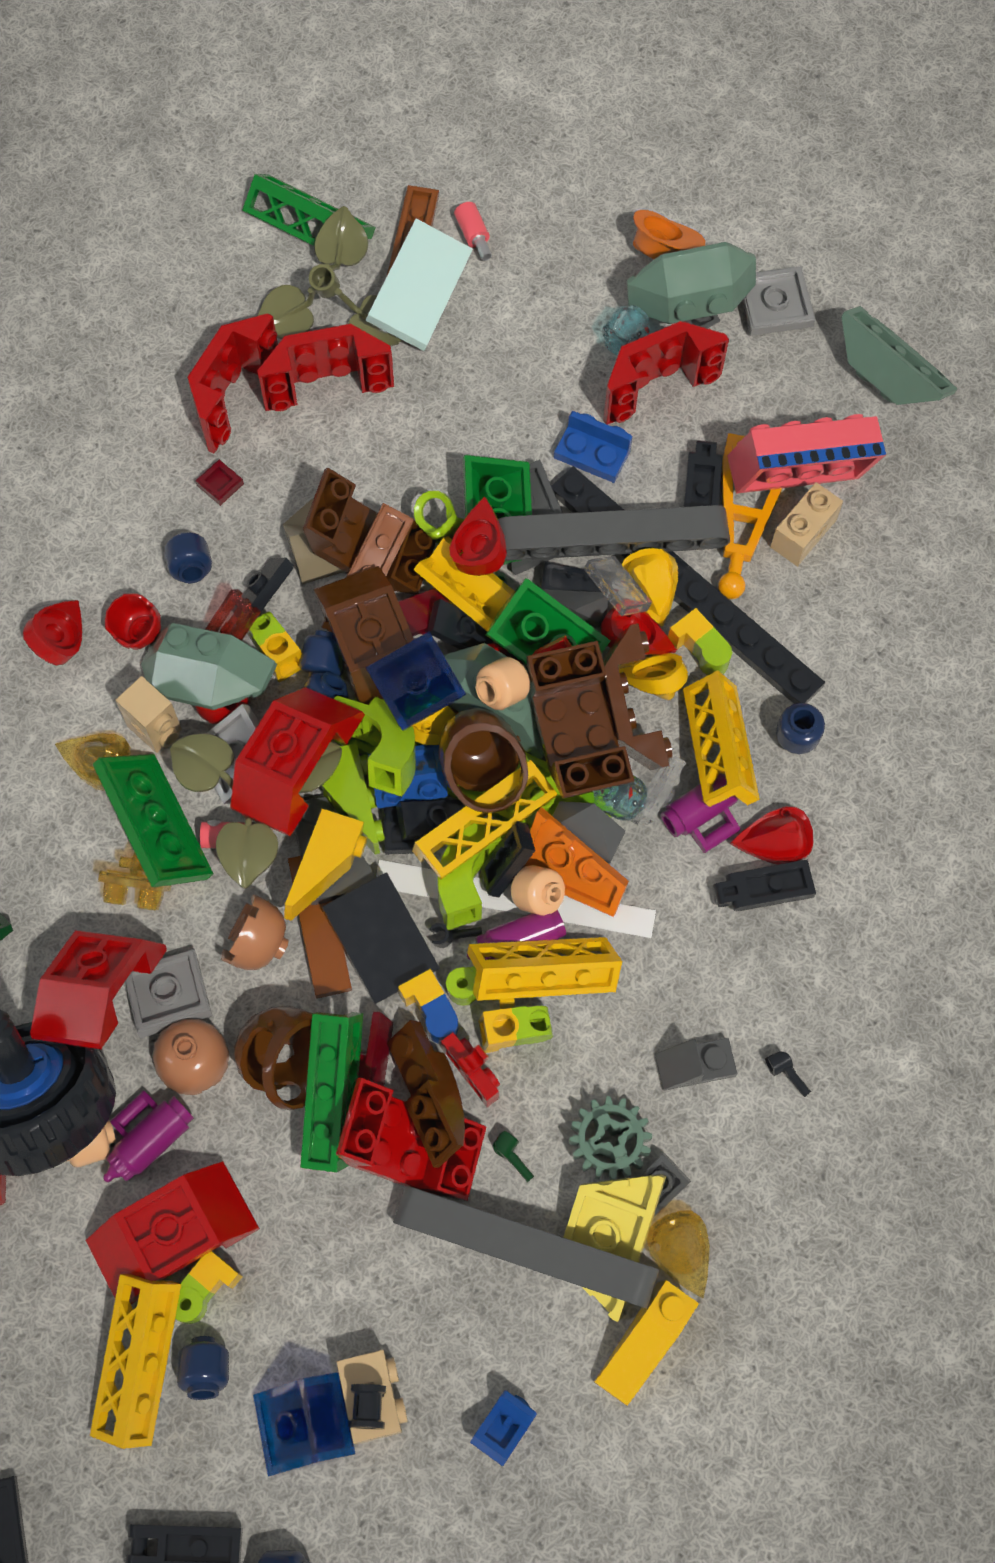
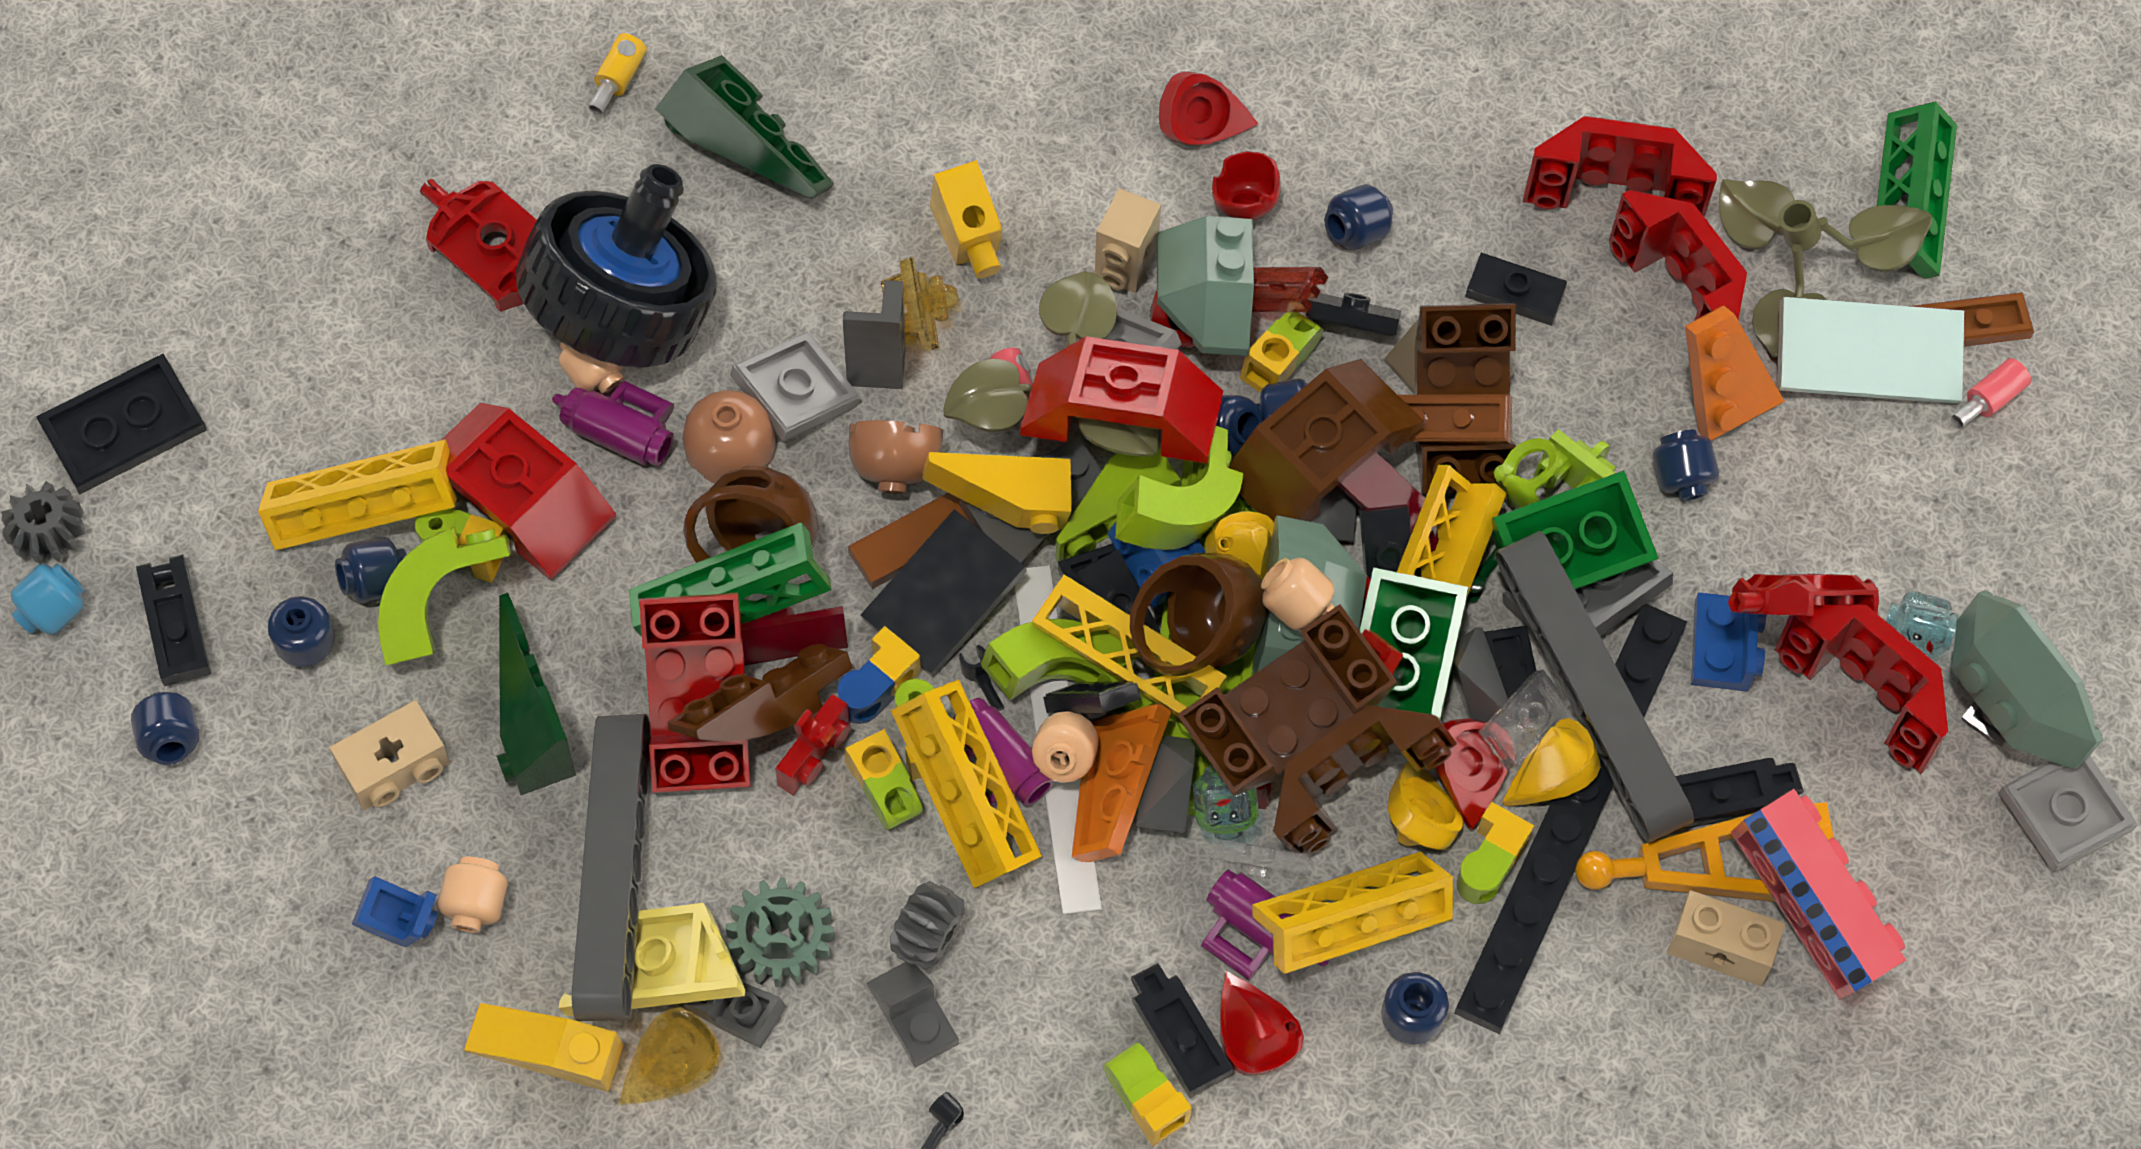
camera: 70 degrees right, 5 degrees down
(79, 821) = (967, 218): none -> yellow torso
(82, 981) = (768, 275): red slope -> none
(84, 751) = (1058, 215): clear yellow piece -> none
(153, 819) = (996, 291): green tile -> none
(171, 910) = (877, 342): none -> dark grey panel
(219, 482) = (1482, 220): dark red tile -> none
(233, 1328) = (404, 603): none -> lime arch
(250, 1449) = (301, 631): none -> dark blue head
(282, 480) = (1502, 281): none -> black plate
(303, 1423) = (340, 695): clear blue slope -> none
(367, 1406) = (370, 741): black bush -> none
(388, 1278) = (529, 724): none -> dark green wedge
(414, 370) = (1726, 374): none -> orange wing
(415, 681) = (1266, 496): clear blue slope -> none
(445, 480) = (1577, 462): none -> lime hips
(460, 423) = (1685, 464): none -> dark blue head
(480, 541) = (1500, 520): red piece -> none
(504, 1147) = (733, 816): dark green hand -> none
(509, 1362) = (472, 894): none -> light nougat head
(596, 384) = (1799, 593): none -> red plate
(643, 1030) = (927, 925): none -> dark grey gear
(661, 236) = (2096, 627): orange piece -> none
(807, 922) = (1147, 1093): none -> leg
(890, 362) = (2039, 984): sand green wedge -> none

